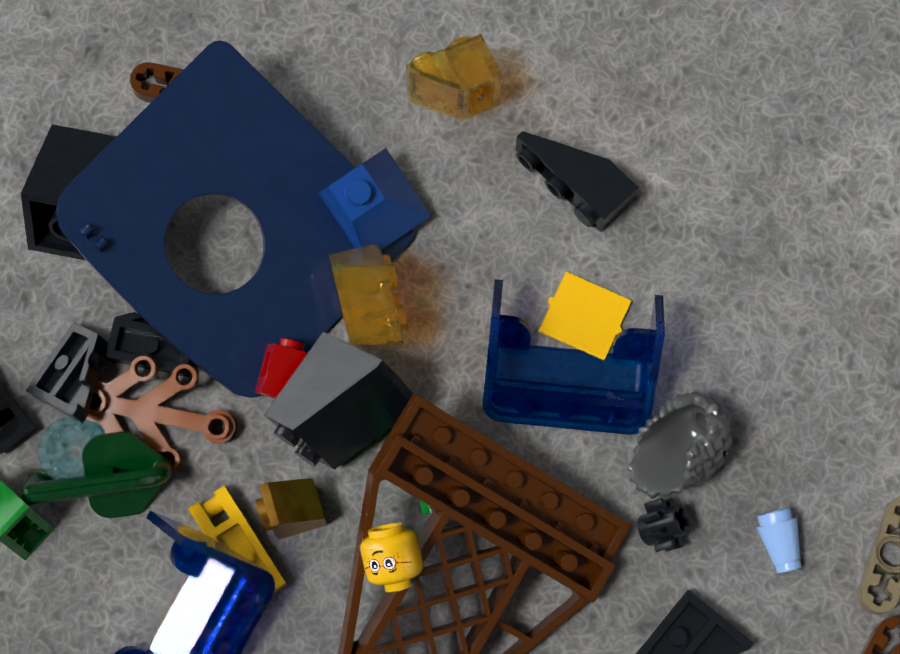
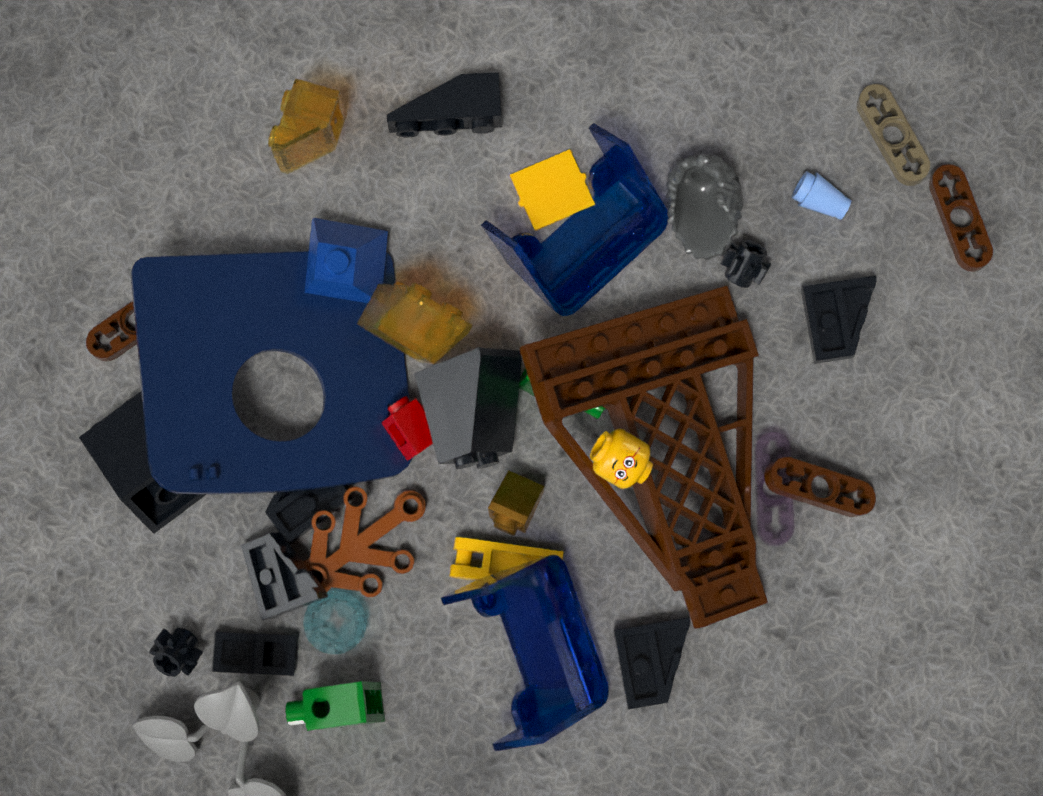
camera: 45 degrees left, 5 degrees up
(118, 477) = (386, 605): dark green piece -> none

